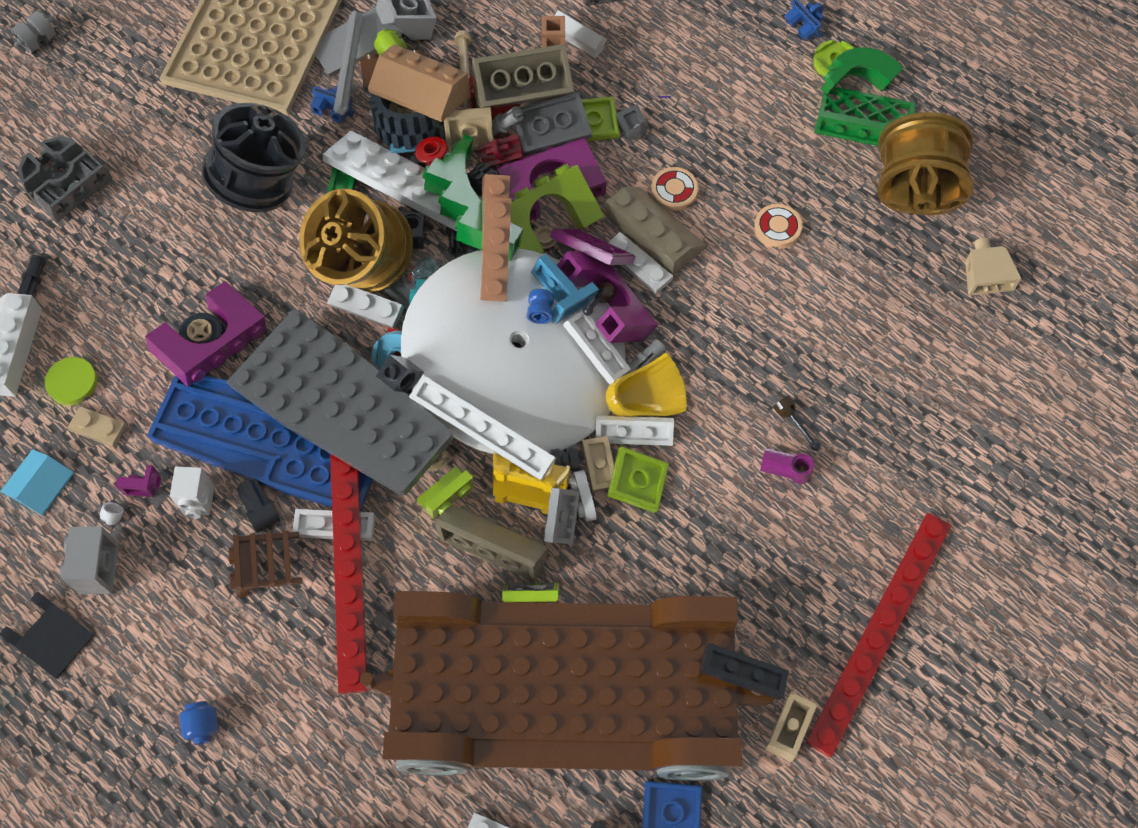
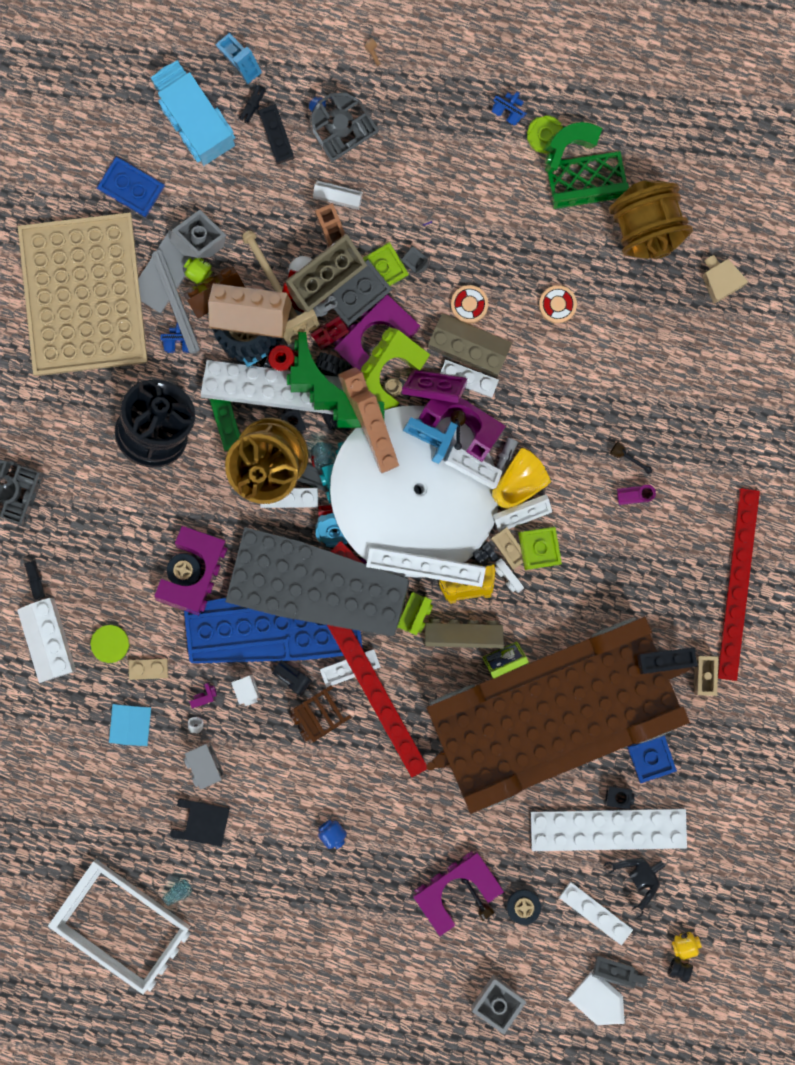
camera: 25 degrees left, 20 degrees up
(399, 374) = (351, 552): black brick -> none
(540, 306) = (424, 458): blue wheel -> none
(561, 516) = (503, 600): light grey bracket -> none

